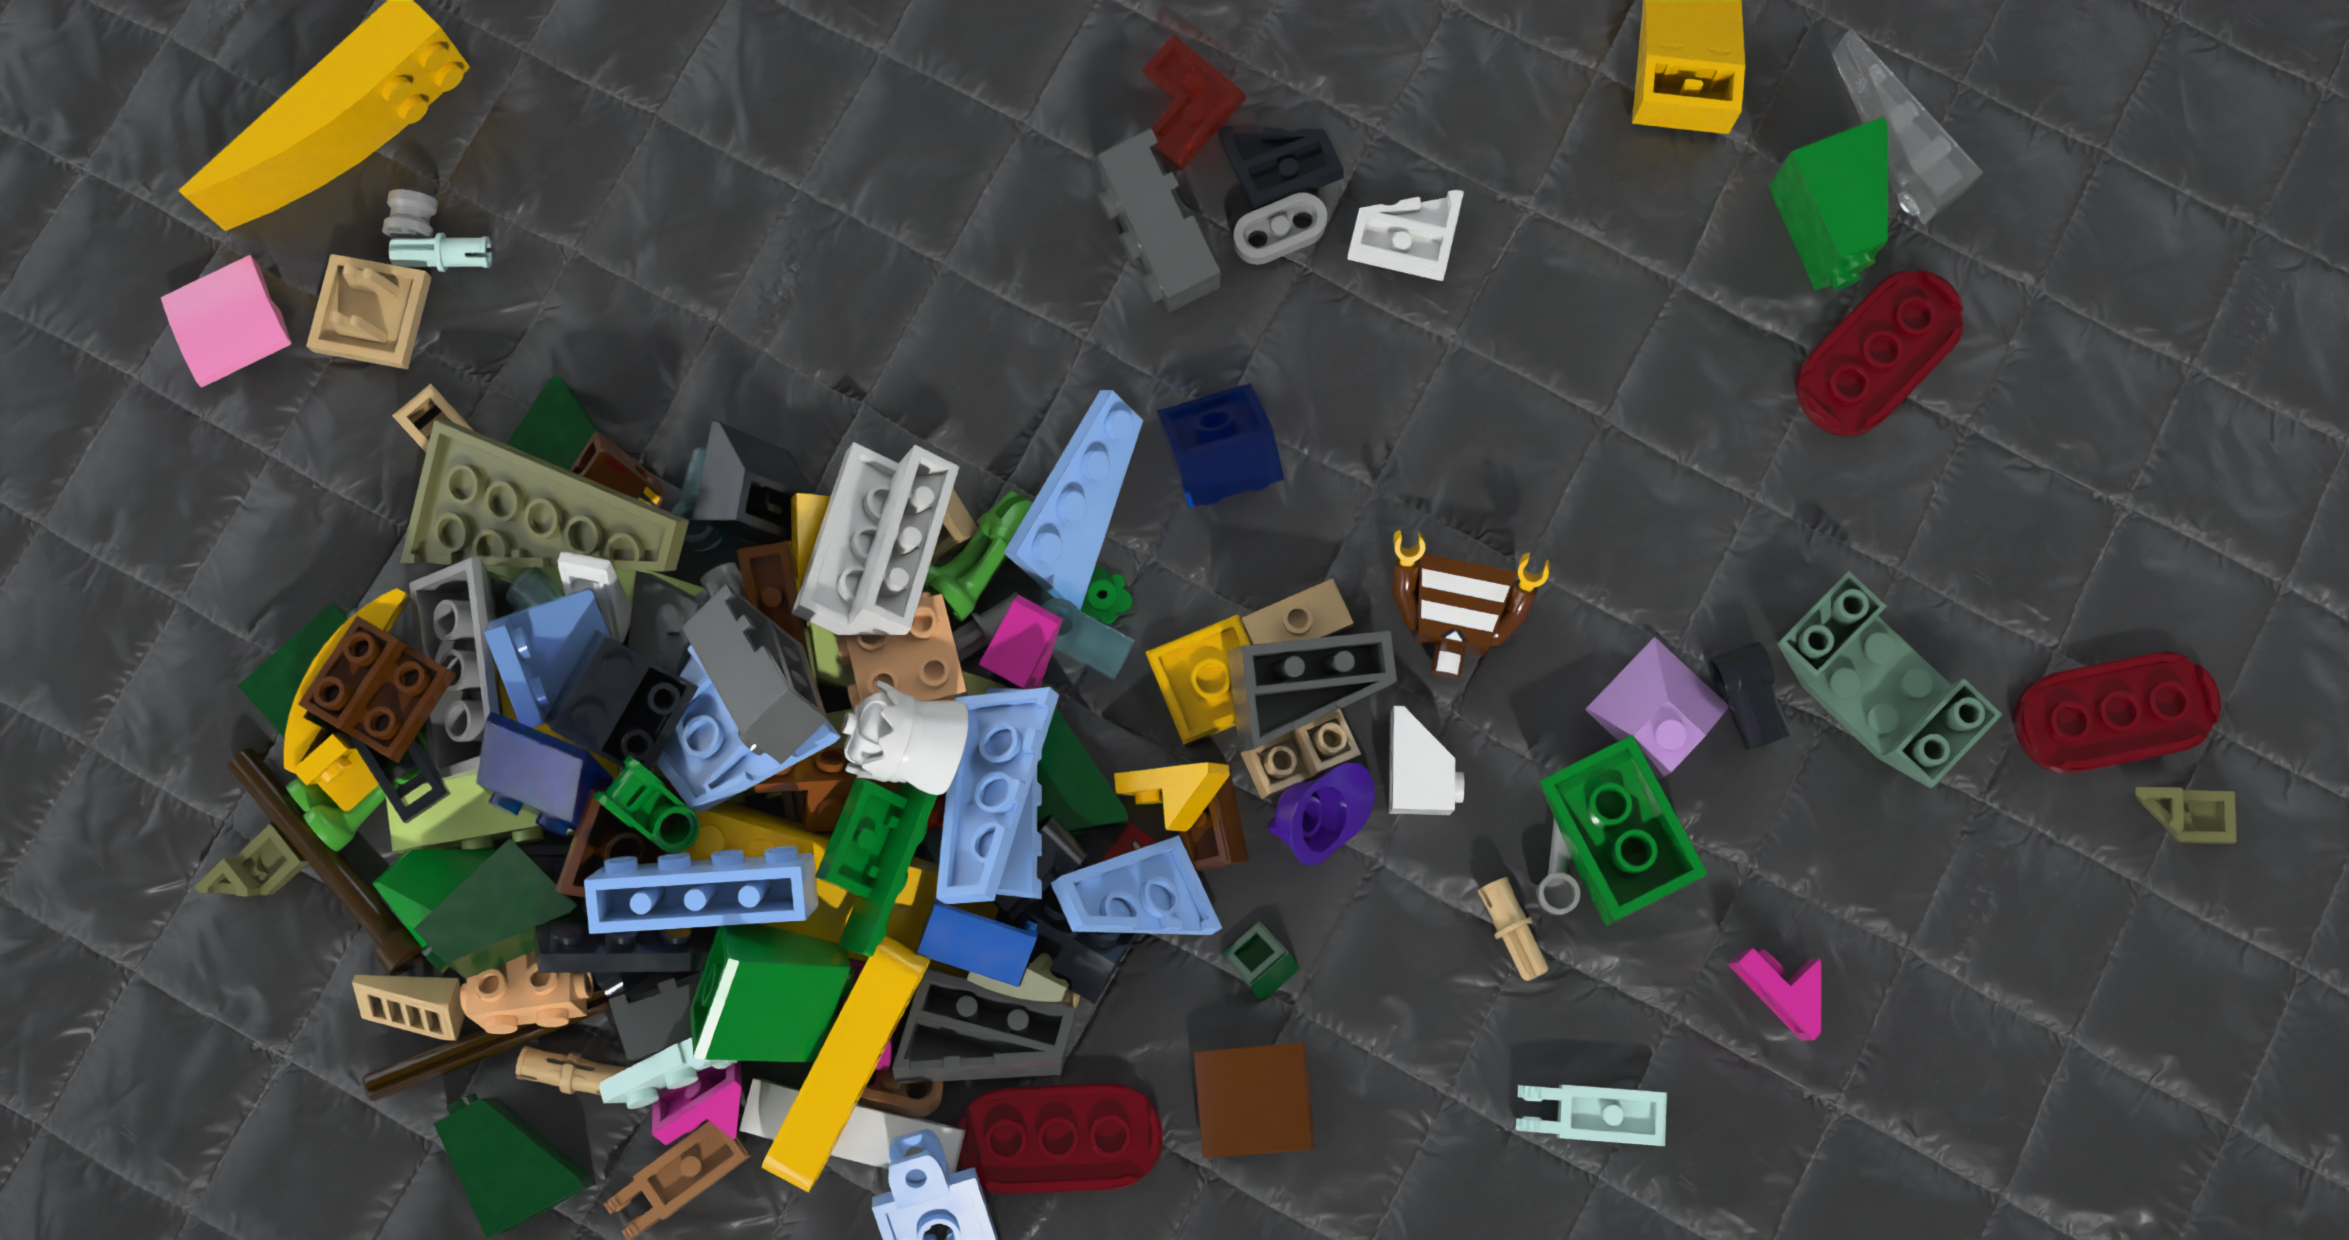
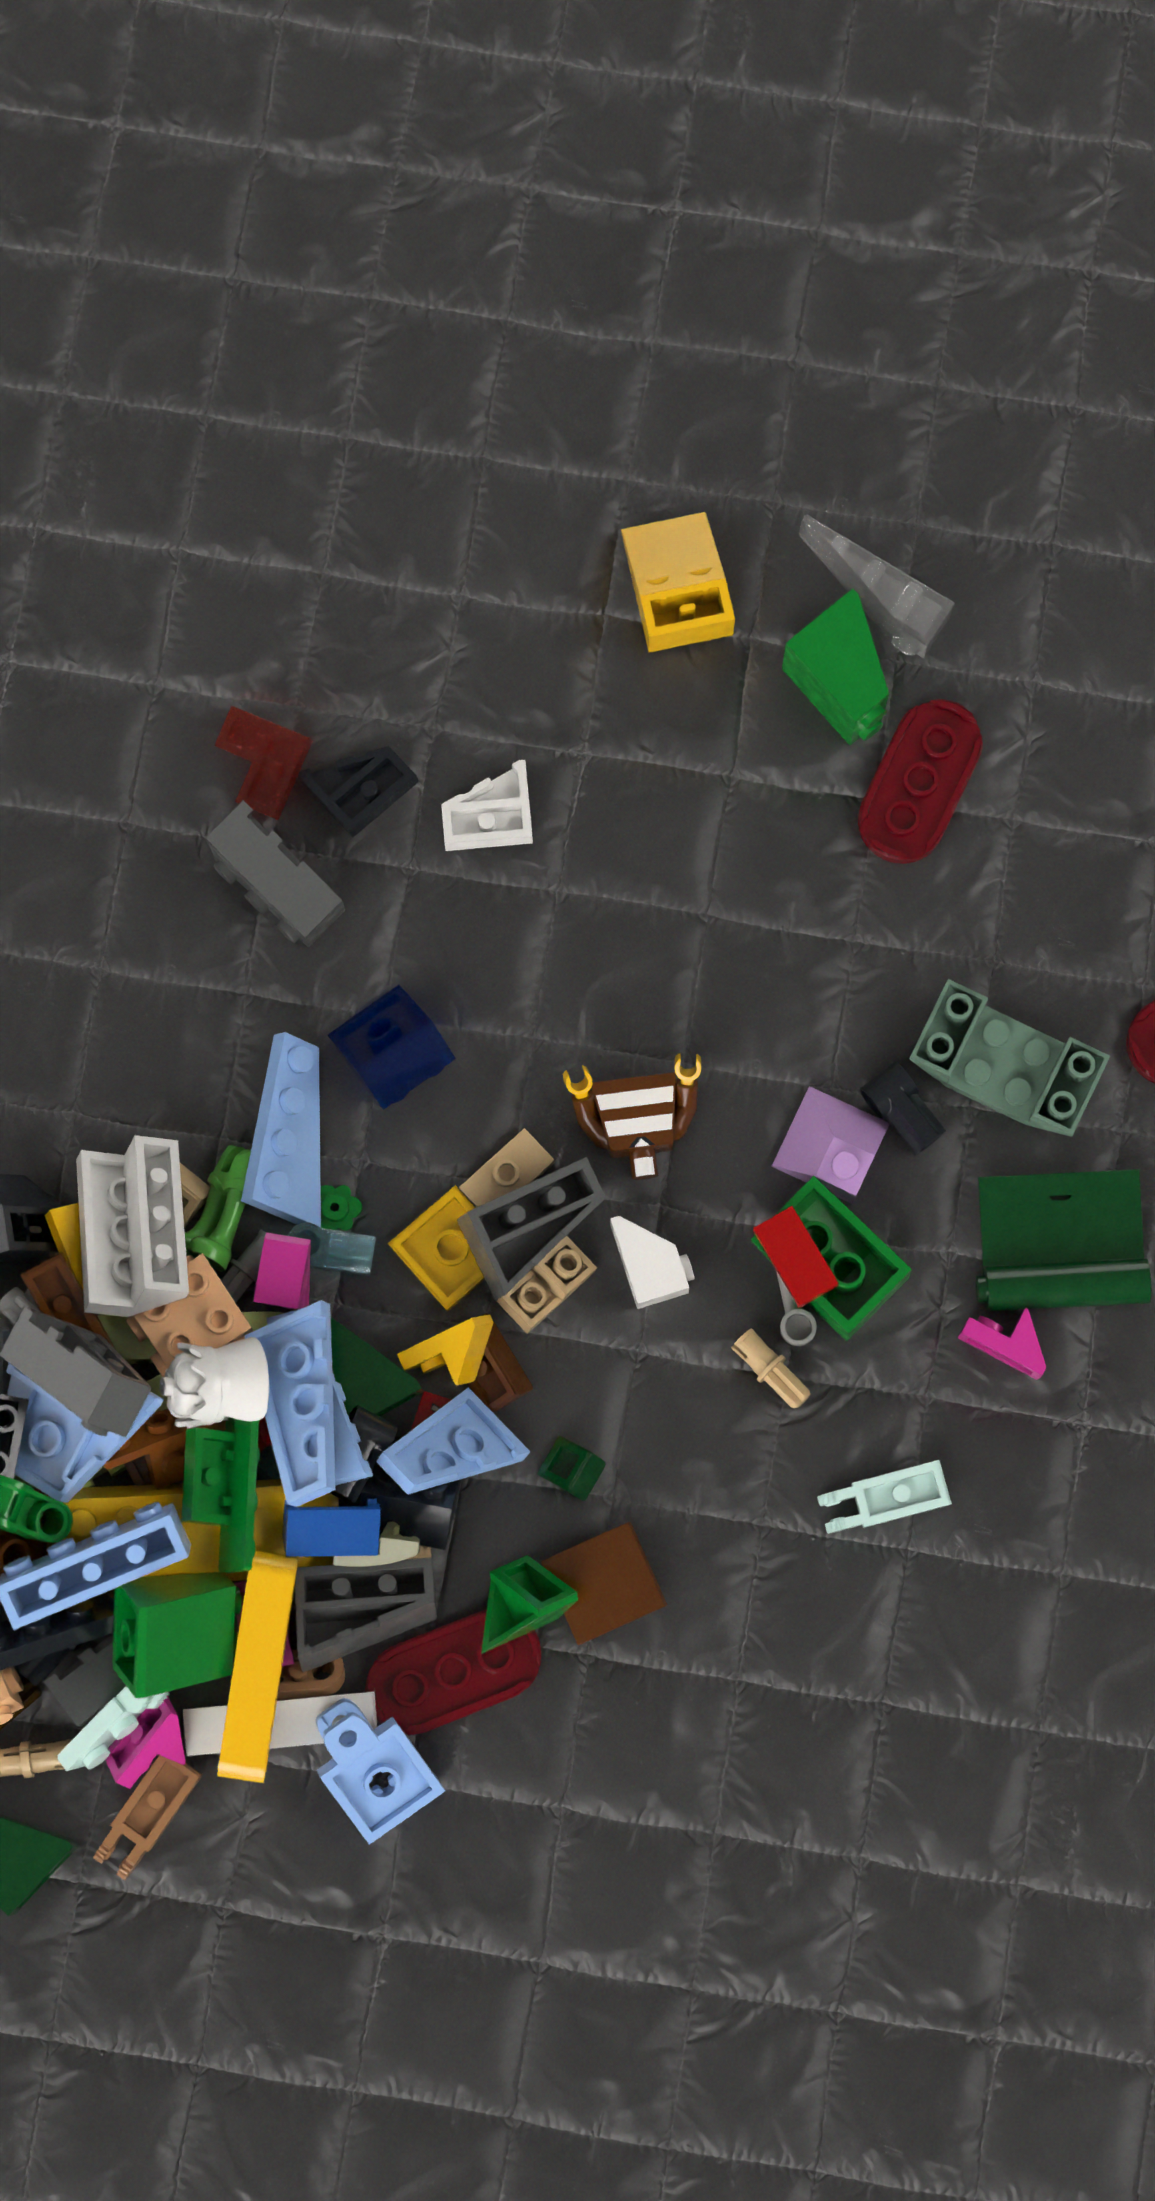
camera: 20 degrees left, 0 degrees up
(1159, 1088) = (522, 1600): none -> green slope
(1277, 227) = (376, 842): light grey plate -> none
(1324, 813) = (583, 1326): dark purple piece -> none
(1584, 816) = (795, 1257): none -> red tile
(1876, 909) = (1060, 1249): none -> dark green door

